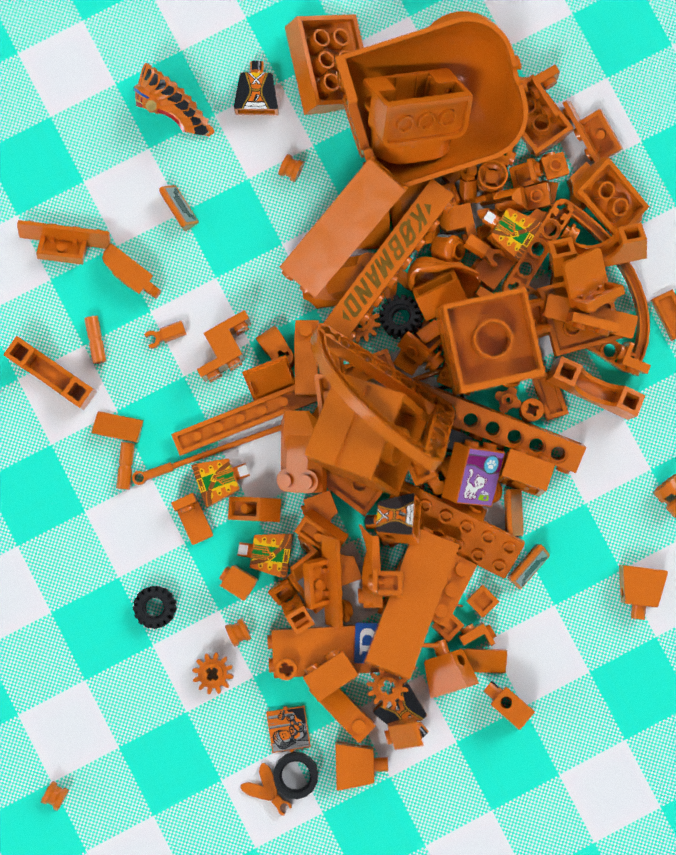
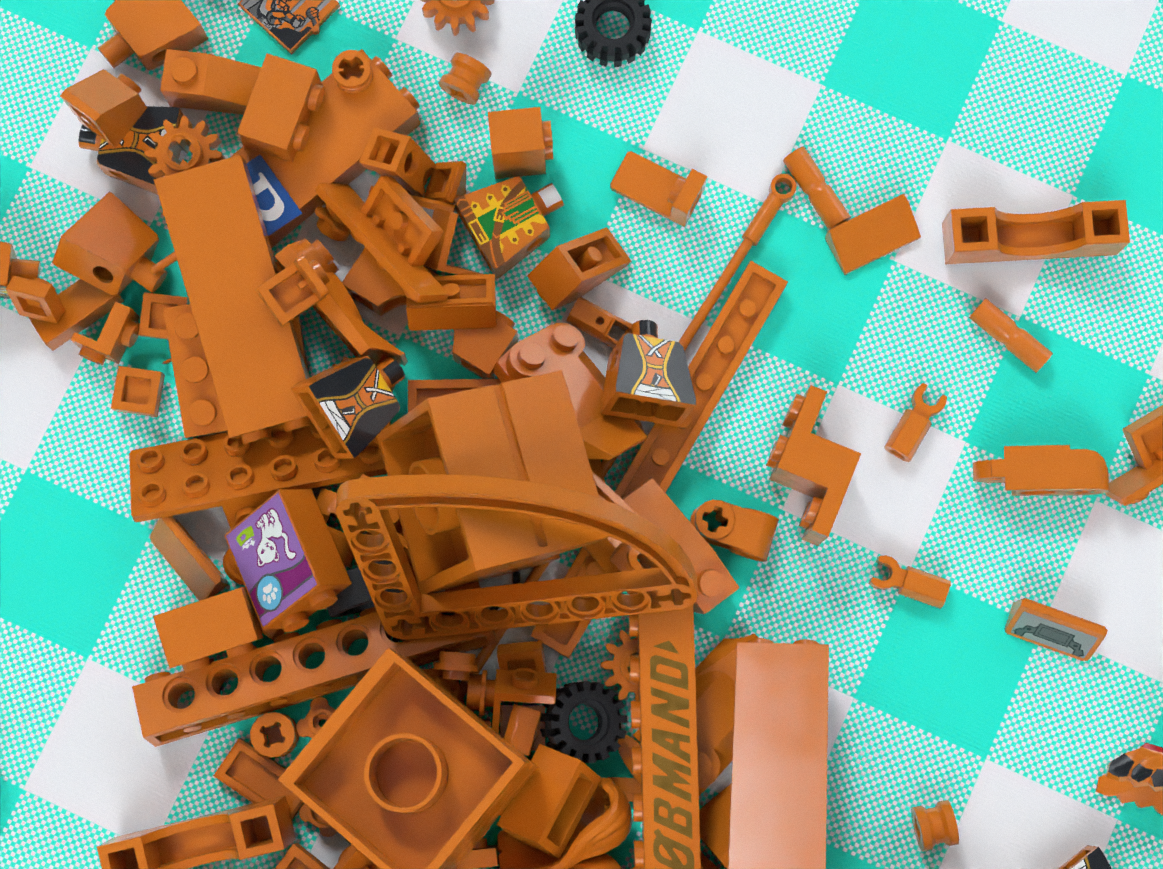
camera: 145 degrees right, 5 degrees down
(218, 479) = (666, 269): torso -> none
(220, 269) = (913, 583): none -> orange bar
(264, 436) = (648, 378): none -> torso
(264, 478) = (596, 321): none -> orange bar
(269, 377) = (709, 471): orange piece -> none
(435, 378) = (456, 665): none -> orange plate
(496, 673) = (35, 299): none -> orange plate
(528, 566) = (106, 495): slope -> none

